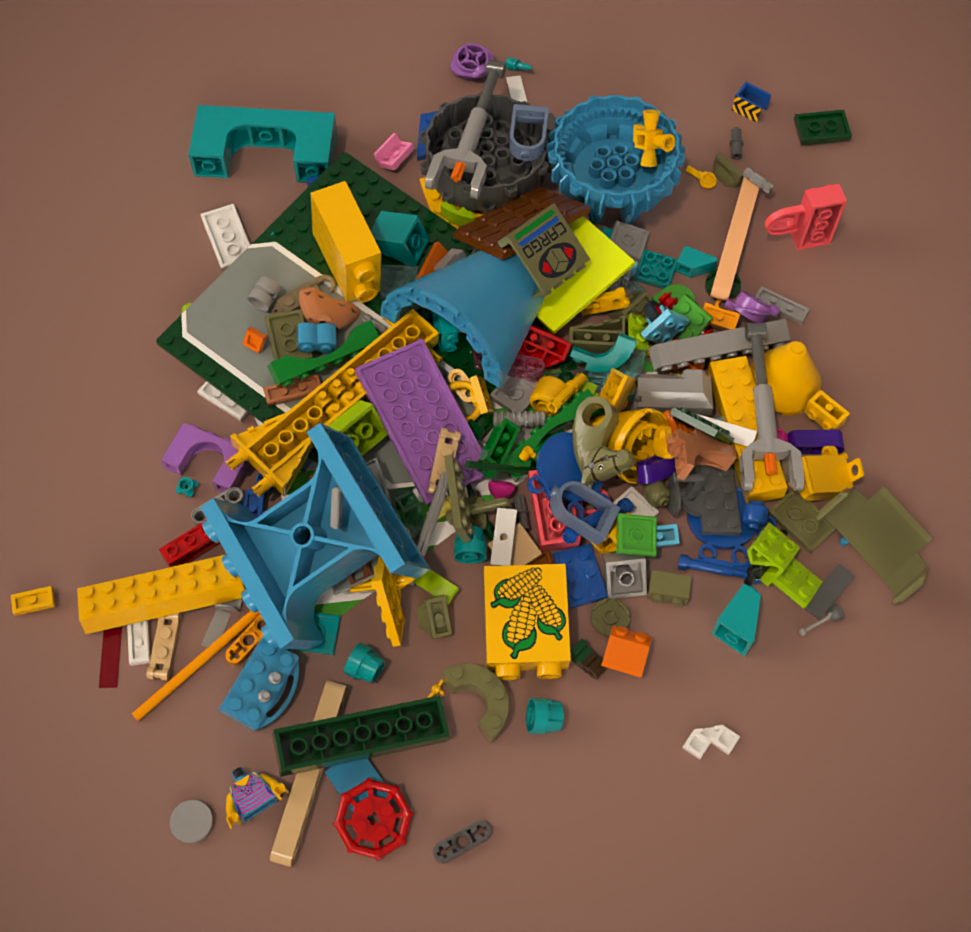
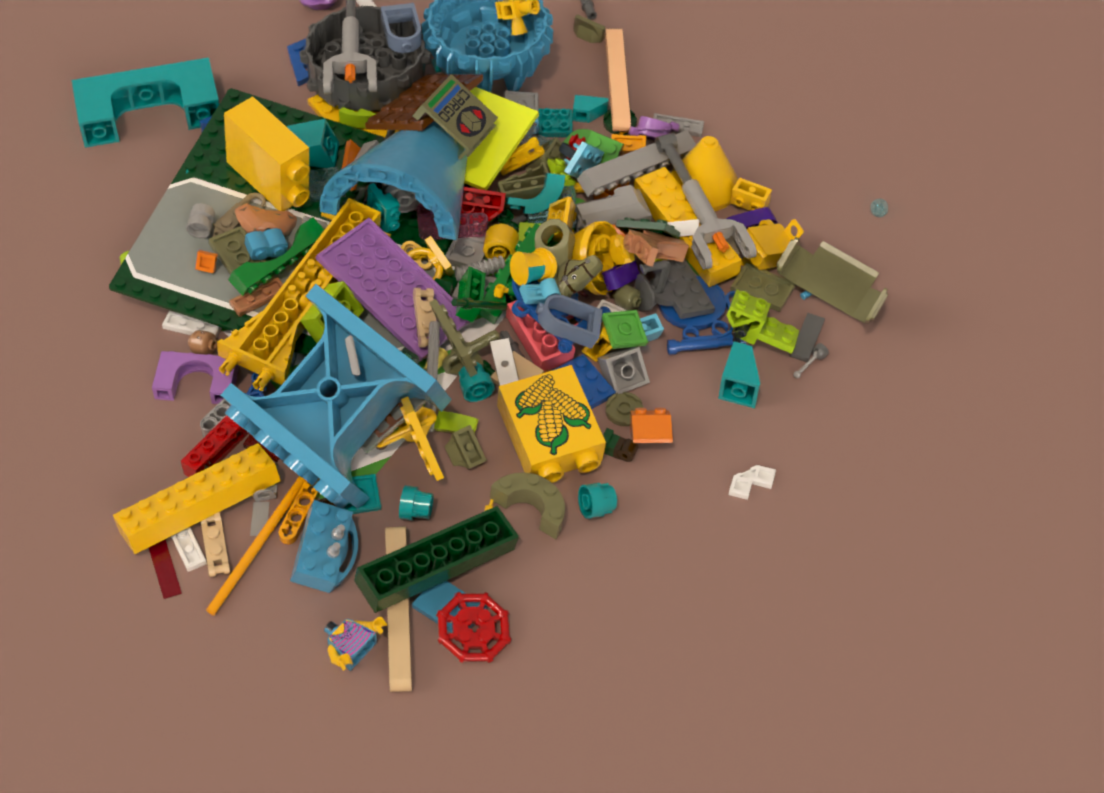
camera: 20 degrees left, 10 degrees down
(32, 600) = (69, 541): yellow plate -> none
(183, 482) = (183, 402): teal plate -> none
(191, 821) = (301, 682): light grey tile -> none
(225, 234) = (137, 188): white tile -> none
(226, 422) = (202, 342): none -> medium nougat head
(393, 152) = (274, 83): bright pink bracket -> none
(445, 843) = (563, 615): dark grey beam -> none
(500, 489) = (482, 329): dark pink brick -> none
(560, 473) = (539, 292): none -> medium azure plate
(562, 444) = (532, 266): none -> yellow hat
(571, 388) = (519, 230): yellow pin -> none
(669, 588) = (667, 369): olive brick -> none
(706, 179) = (572, 40): yellow plate -> none
(755, 515) = (721, 290): blue head -> none
(758, 180) = (620, 28): light grey axle -> none
(811, 221) = (681, 46): coral brick -> none
(960, 462) = (879, 208): none -> clear light blue tile

